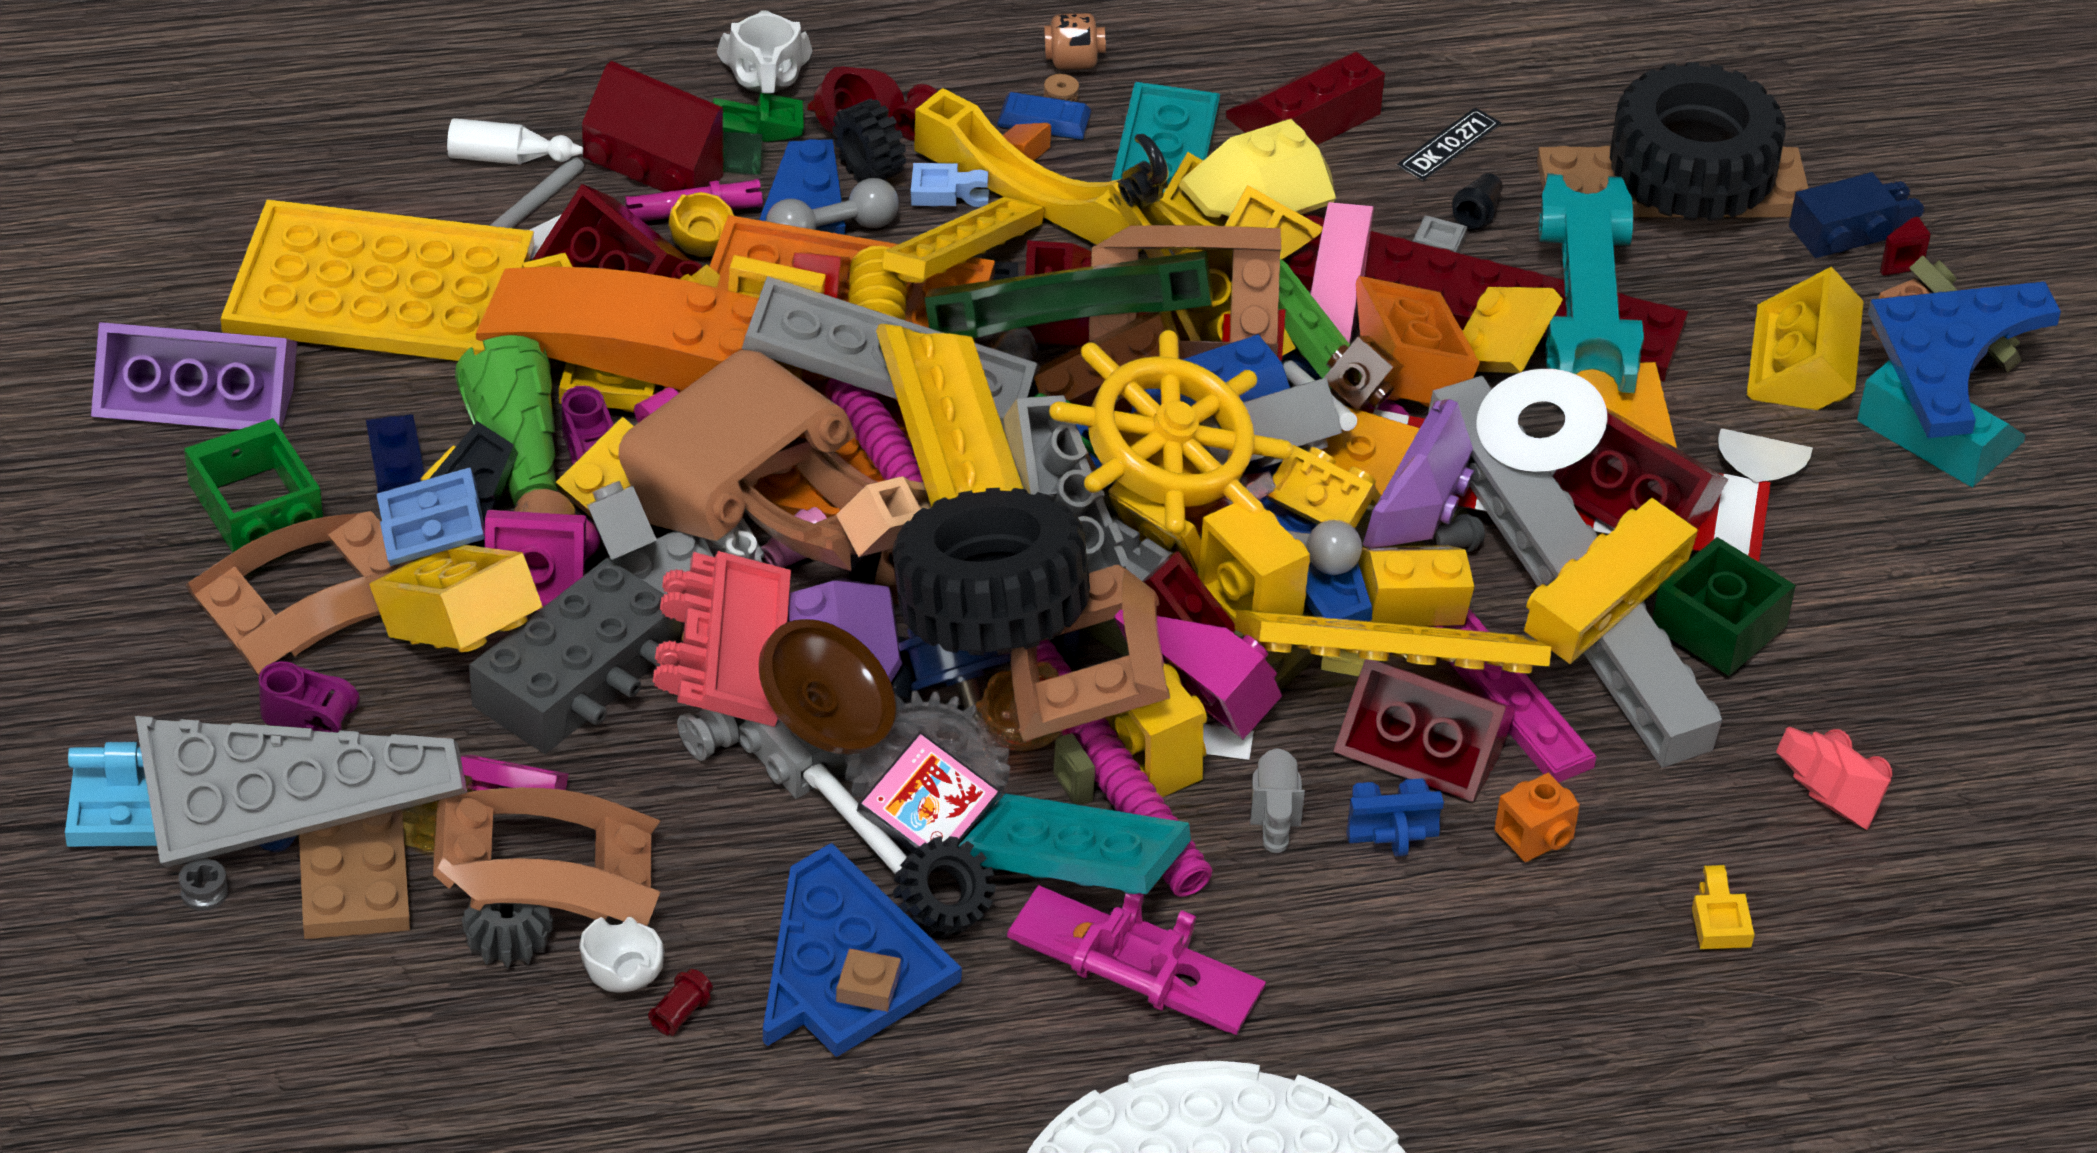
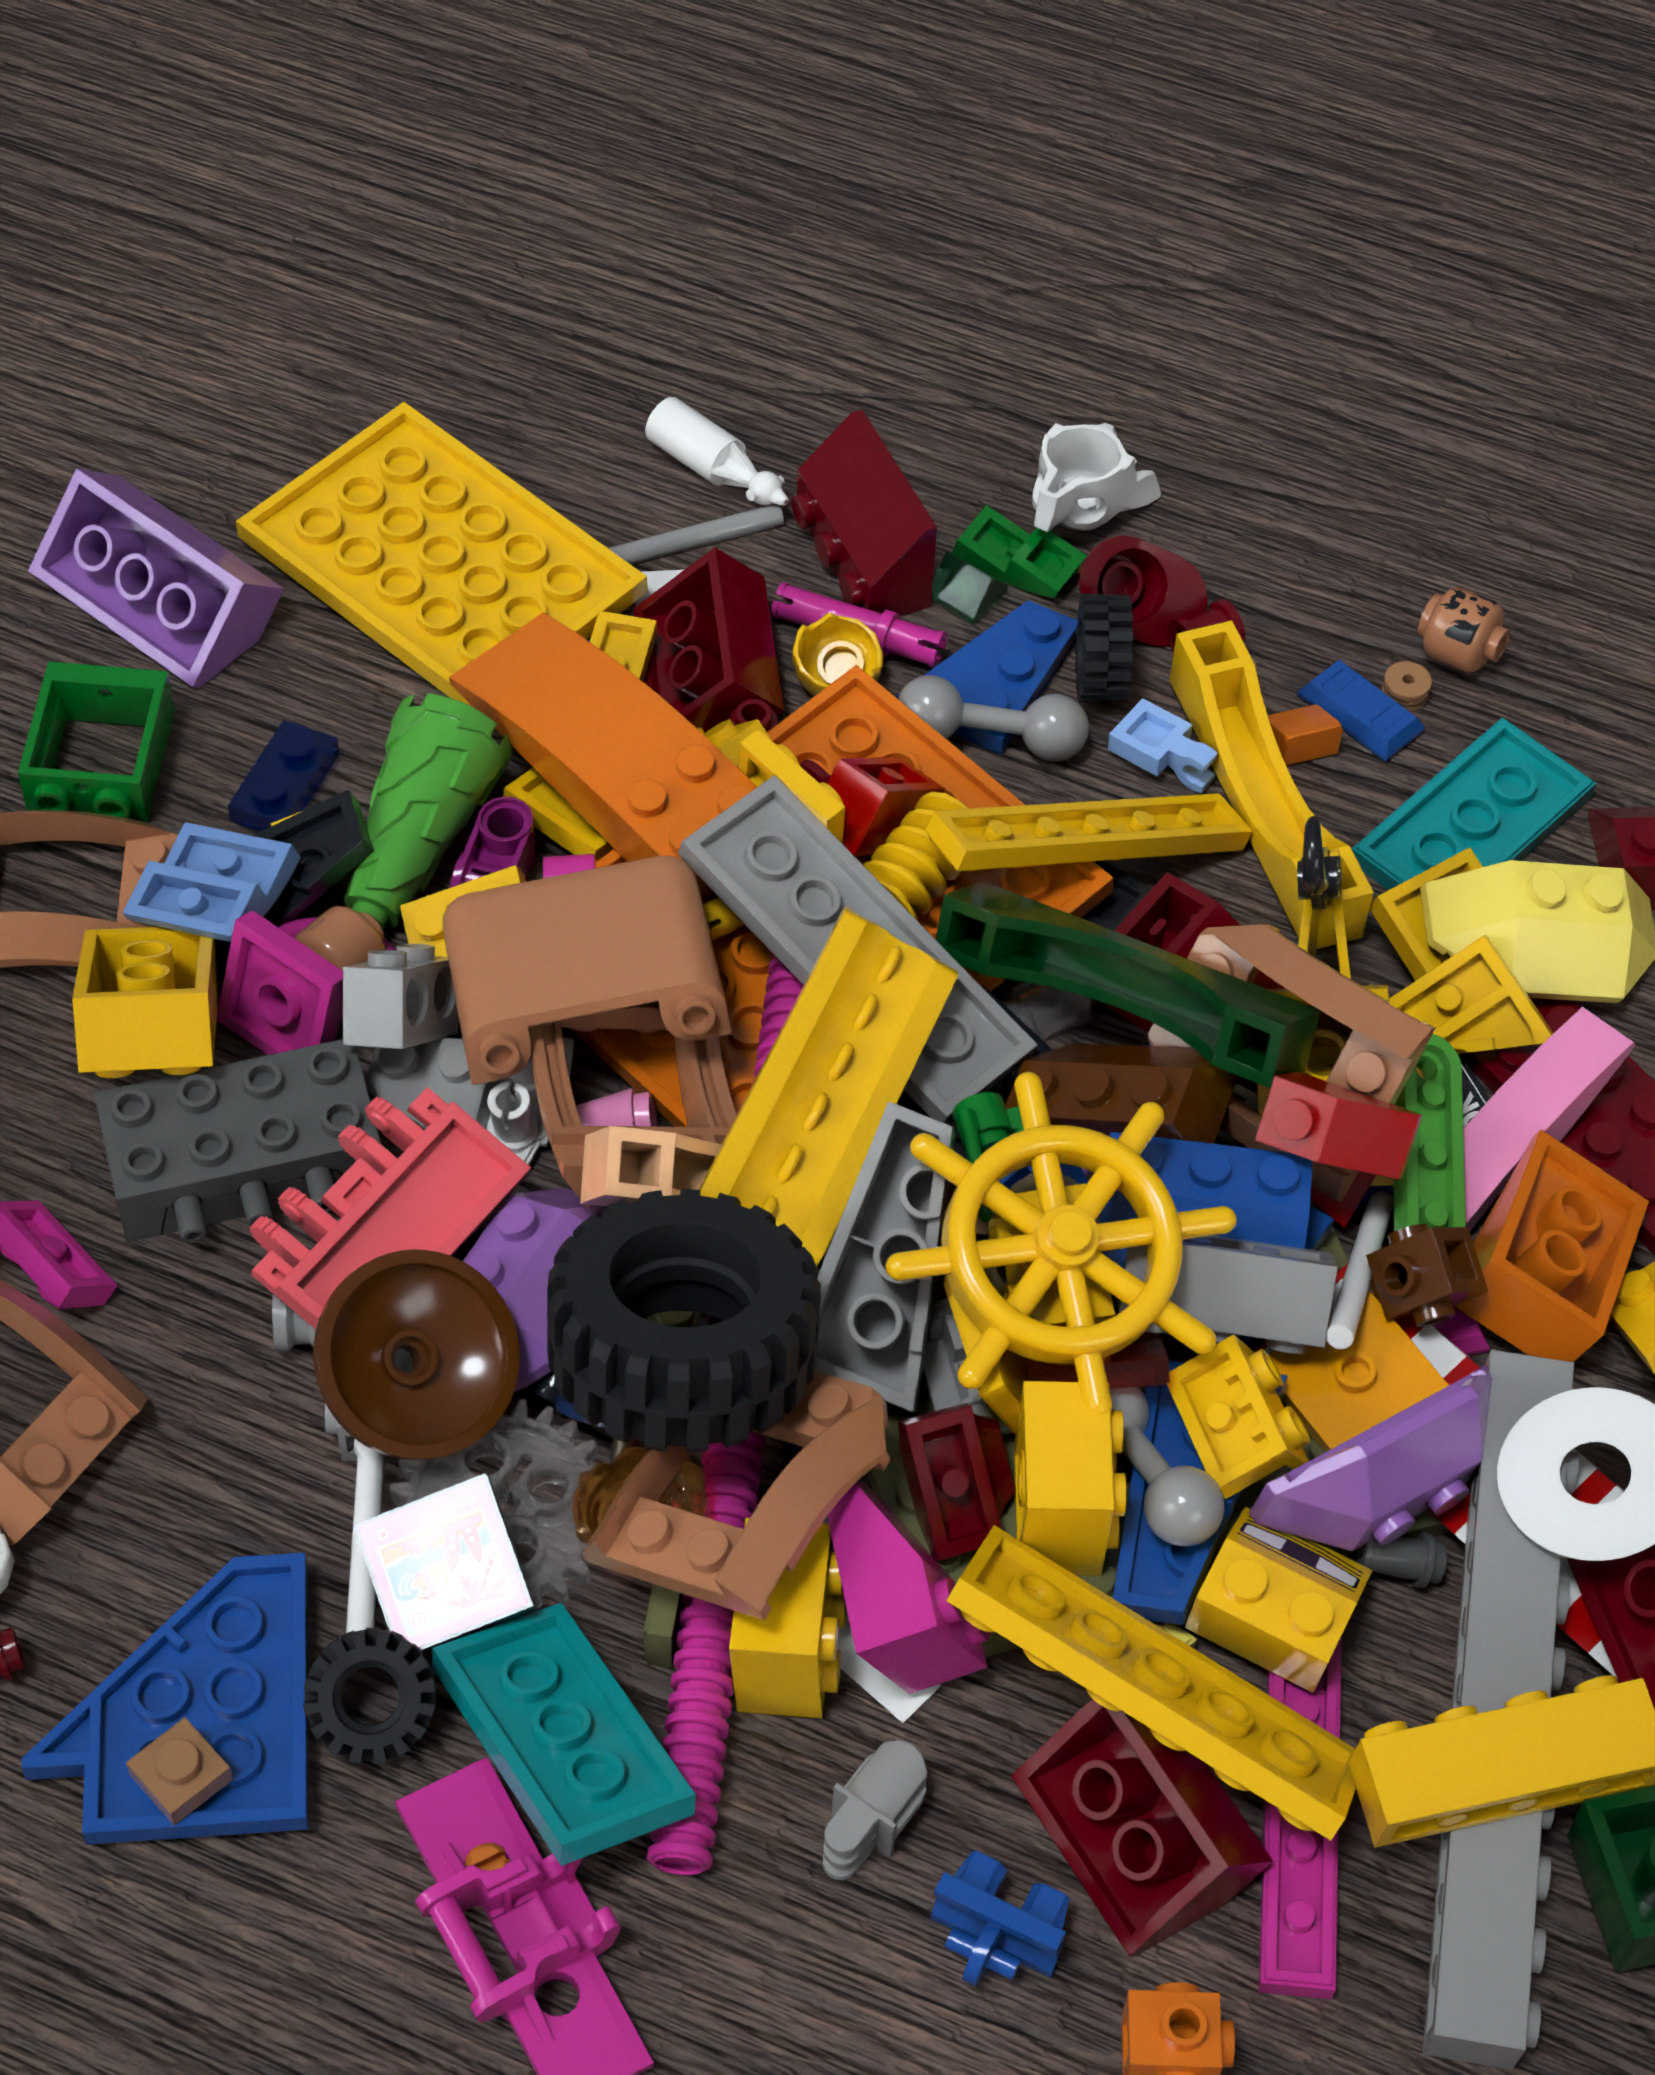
camera: 35 degrees right, 10 degrees up
(1262, 309) = (1337, 1126): none -> red slope

